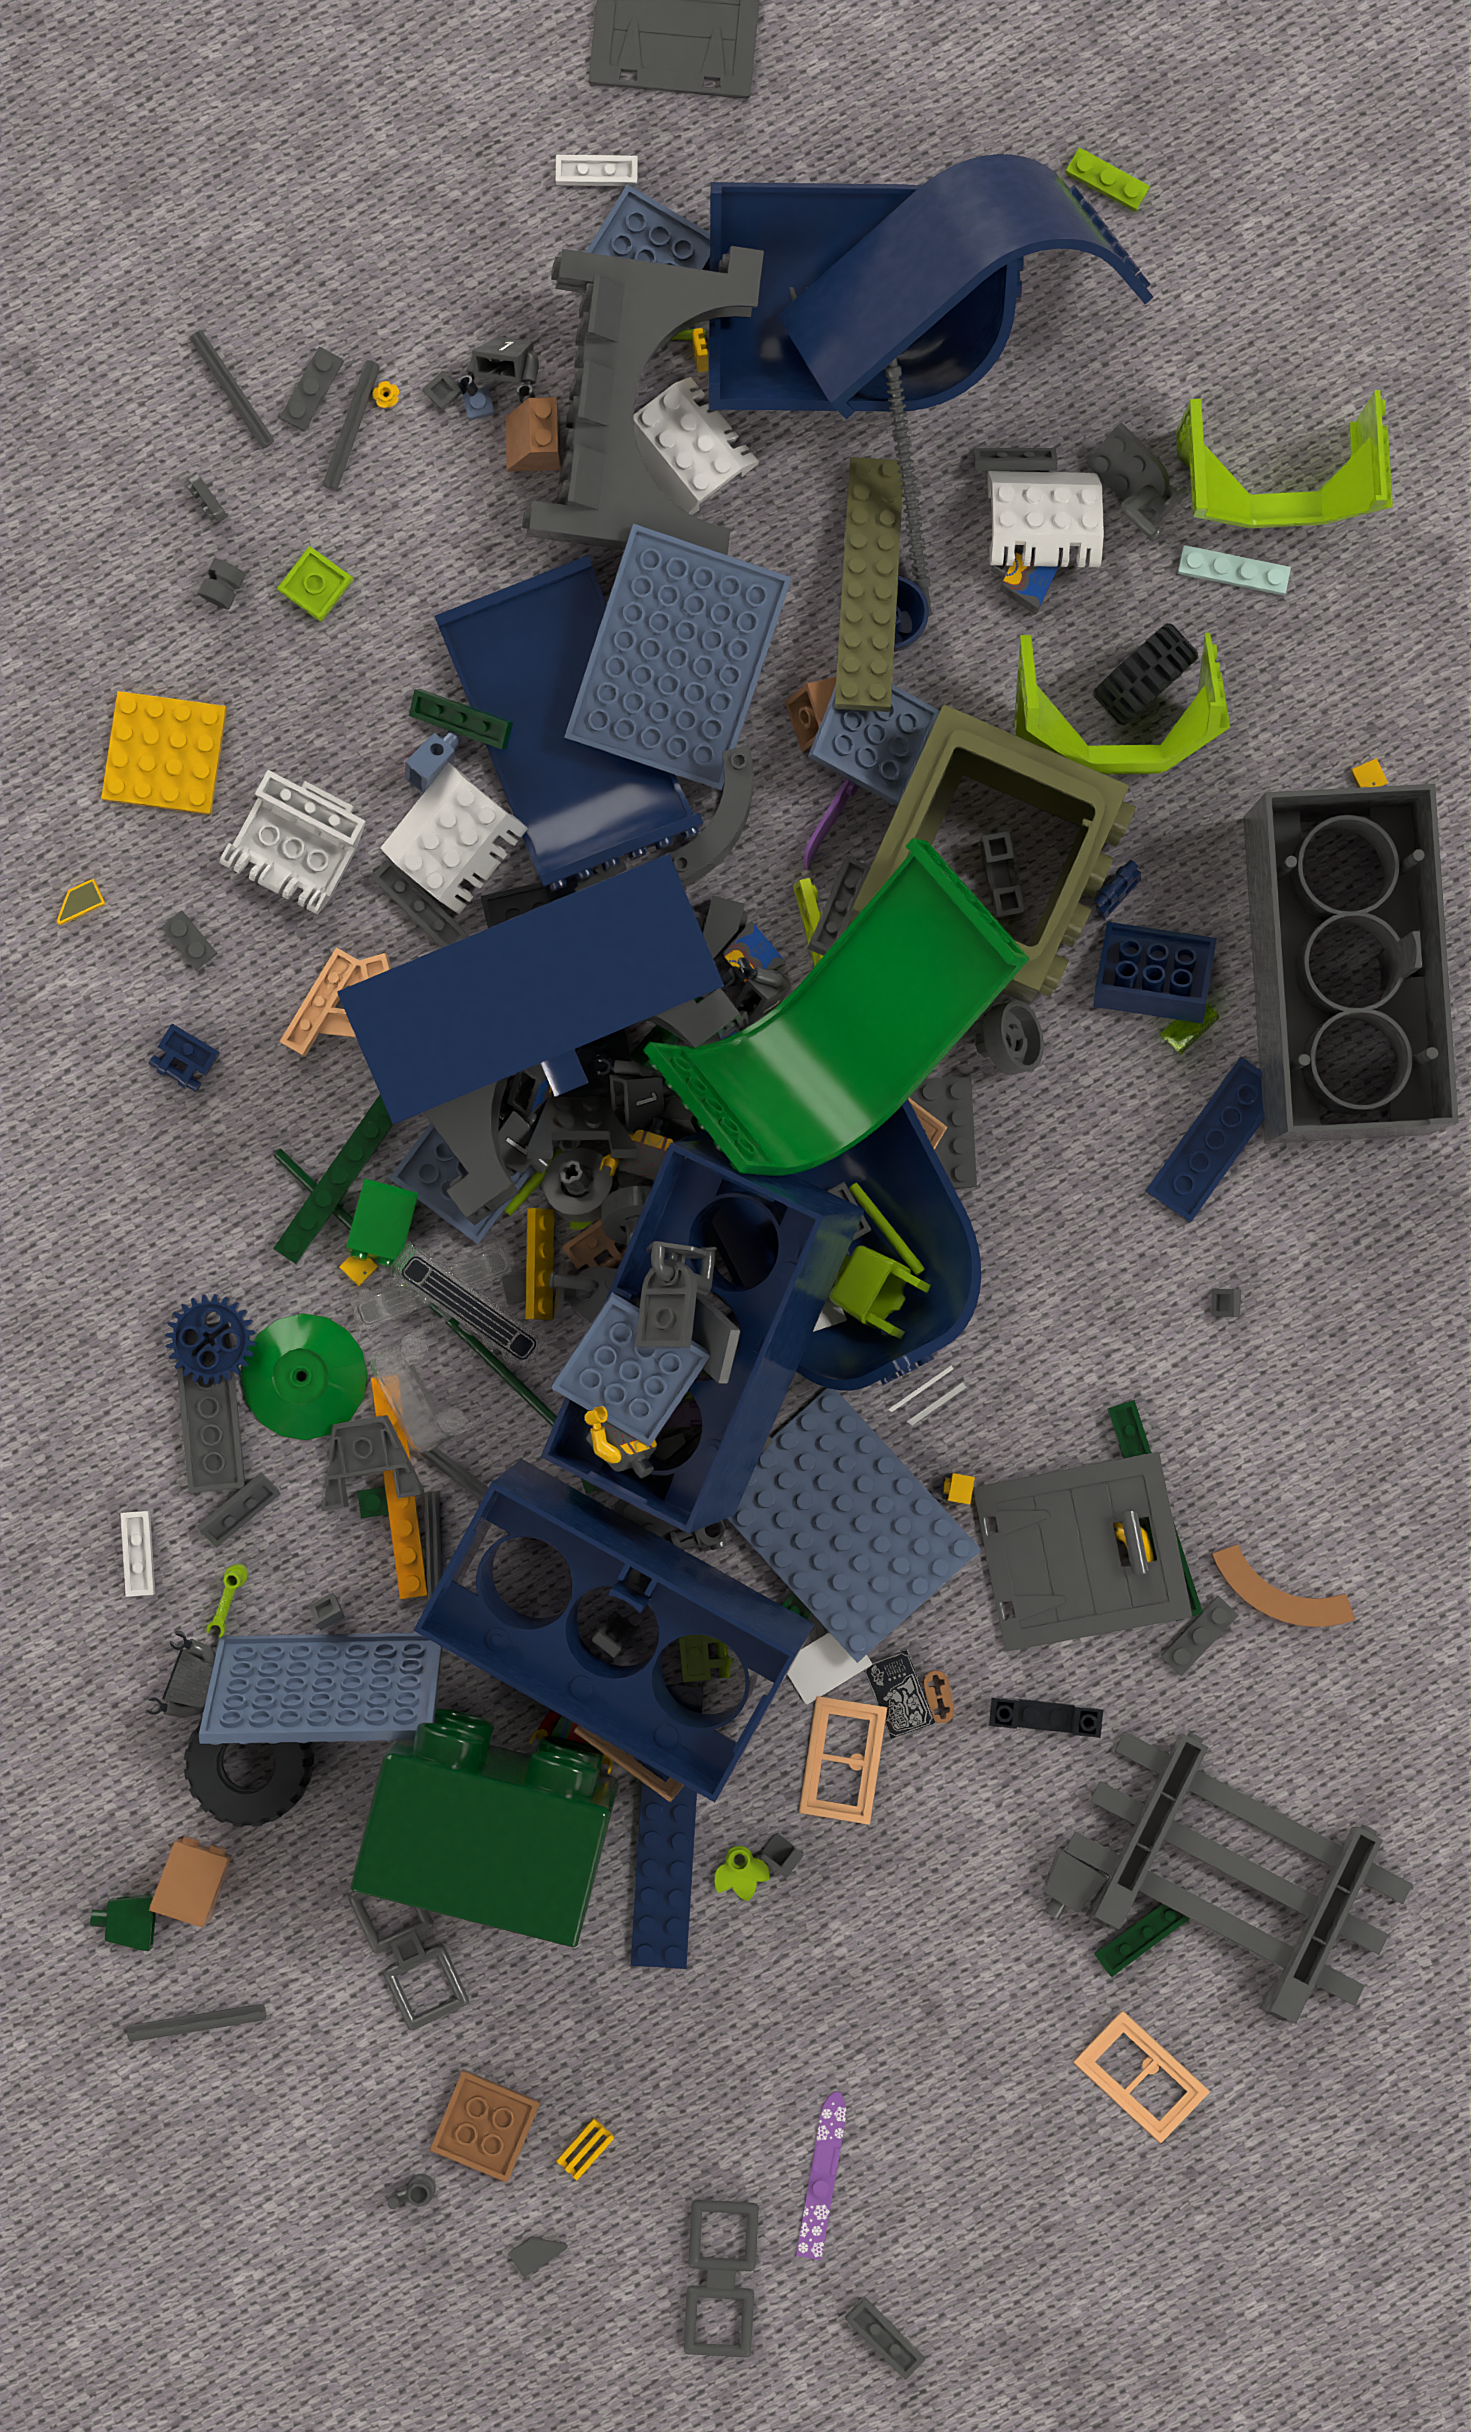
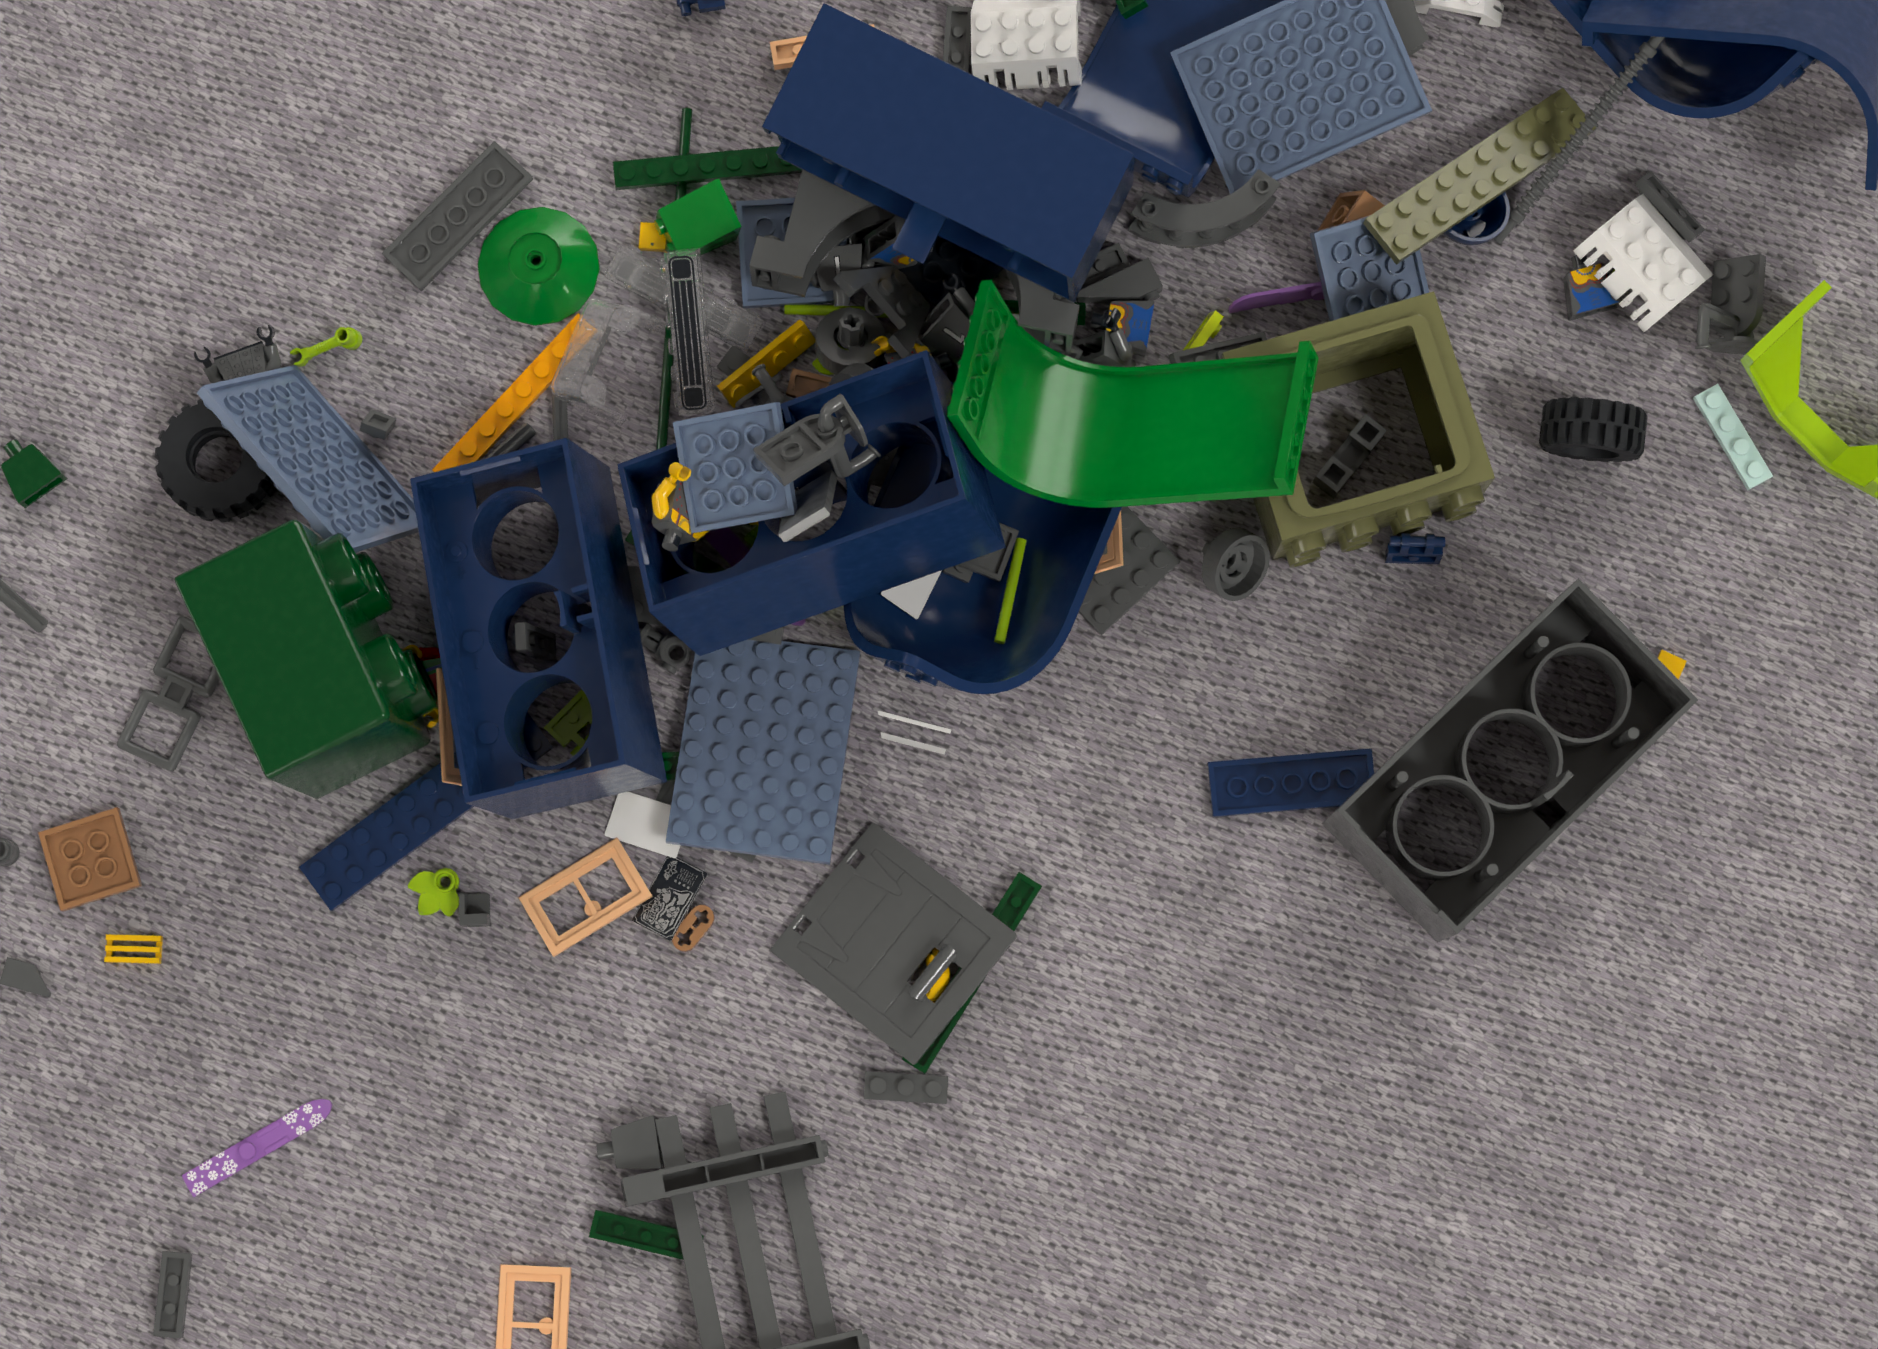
camera: 55 degrees right, 5 degrees down
(137, 1553) = (307, 254): white plate -> none
(191, 1882) = (95, 492): medium nougat slope -> none
(196, 1319) = (513, 150): dark blue gear -> none
(238, 1510) = (399, 299): dark grey plate -> none
(363, 1449) = (520, 350): dark grey wing -> none
(373, 1502) = (486, 391): dark green plate -> none
(721, 2278) = (118, 1132): dark grey bar -> none
(872, 1288) = (955, 613): lime piece -> none
(959, 1488) = (863, 810): yellow plate -> none
(1045, 726) = (1577, 498): lime panel -> none
(1046, 1716) = (744, 1018): black slope -> none
(1154, 972) = (1377, 630): dark blue slope -> none
(1183, 1034) = (1360, 691): clear neon green plate -> none
(1226, 1302) = (1175, 894): dark grey plate -> none
(1276, 1603) = (981, 1126): medium nougat tile -> none

